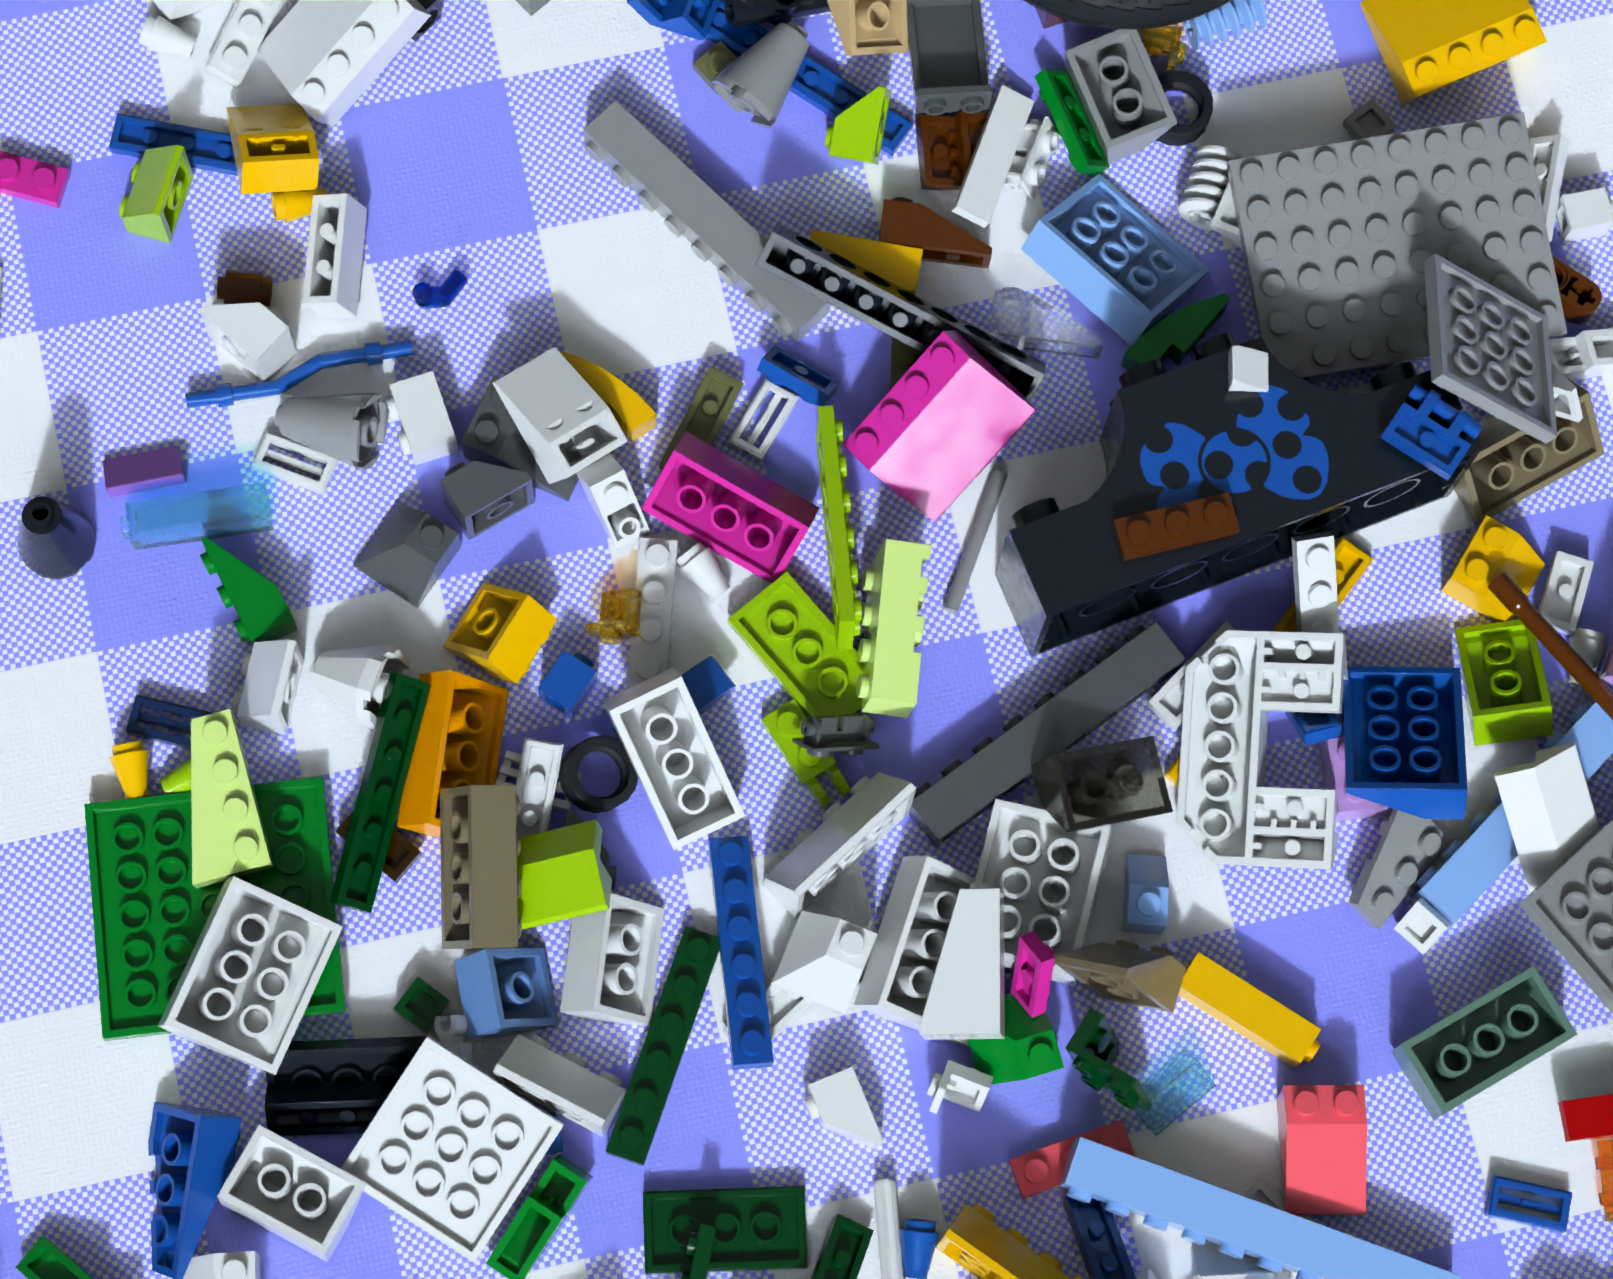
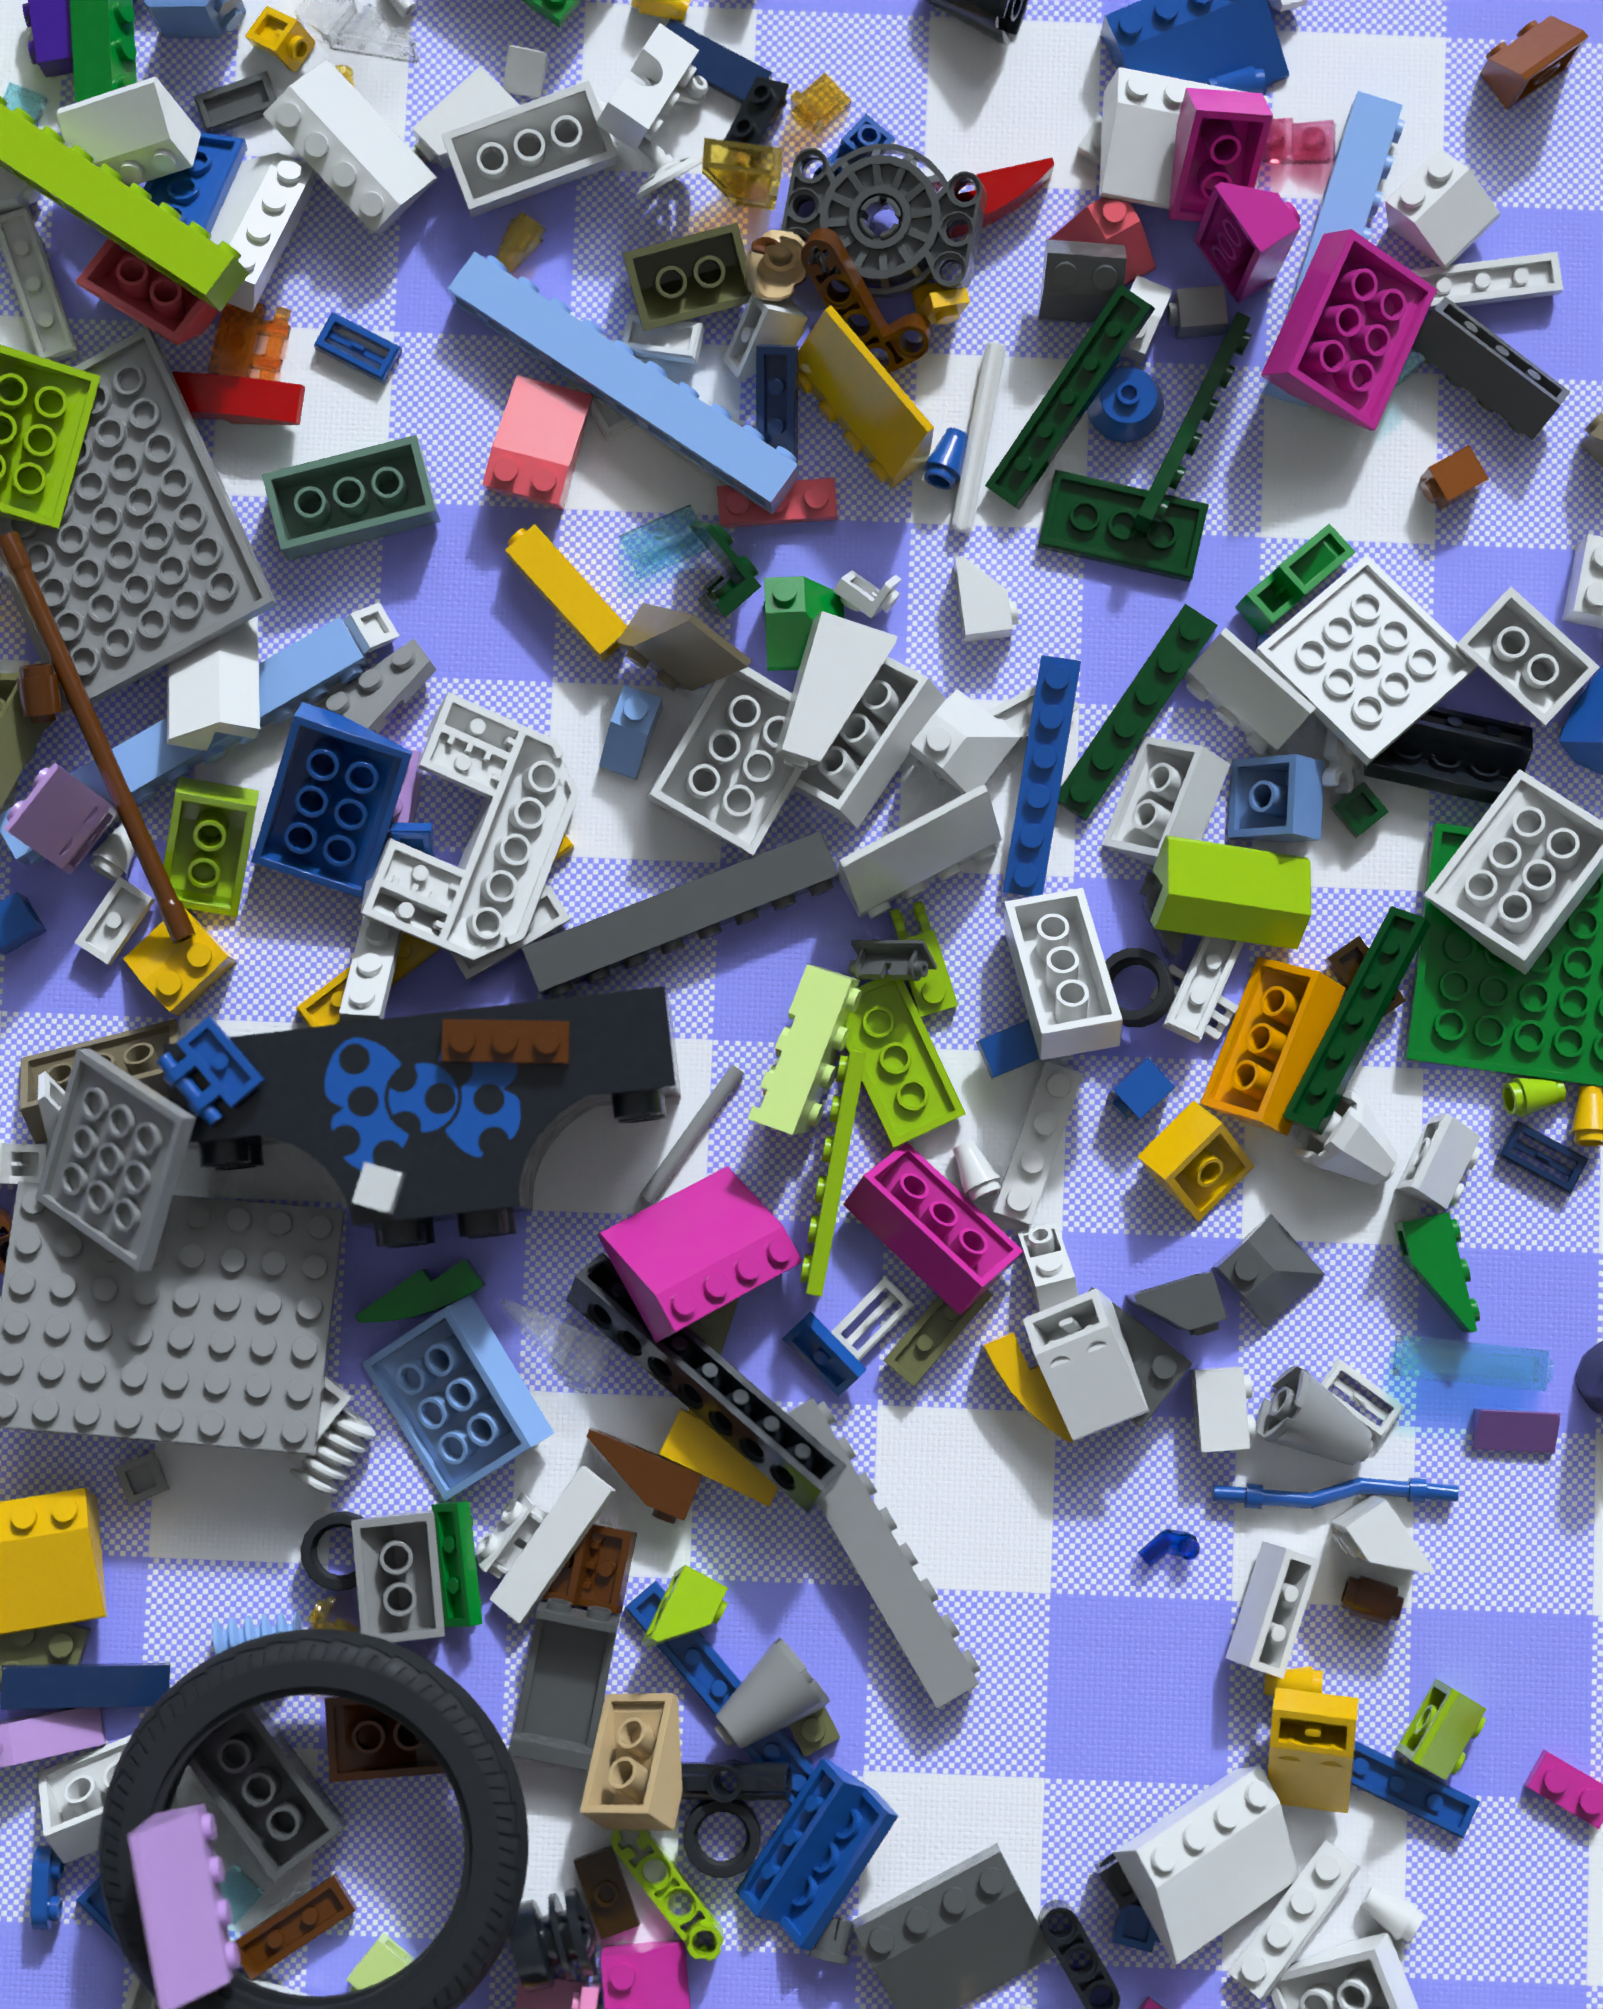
camera: 160 degrees left, 10 degrees up
(224, 806) = (1513, 1043): yellowish green wedge -> none
(479, 867) = (1280, 910): dark tan slope -> none
(617, 616) = (1074, 1145): clear yellow bracket -> none
(1032, 974) = (770, 665): dark pink plate -> none
(1102, 784) = (644, 837): clear smoke slope -> none

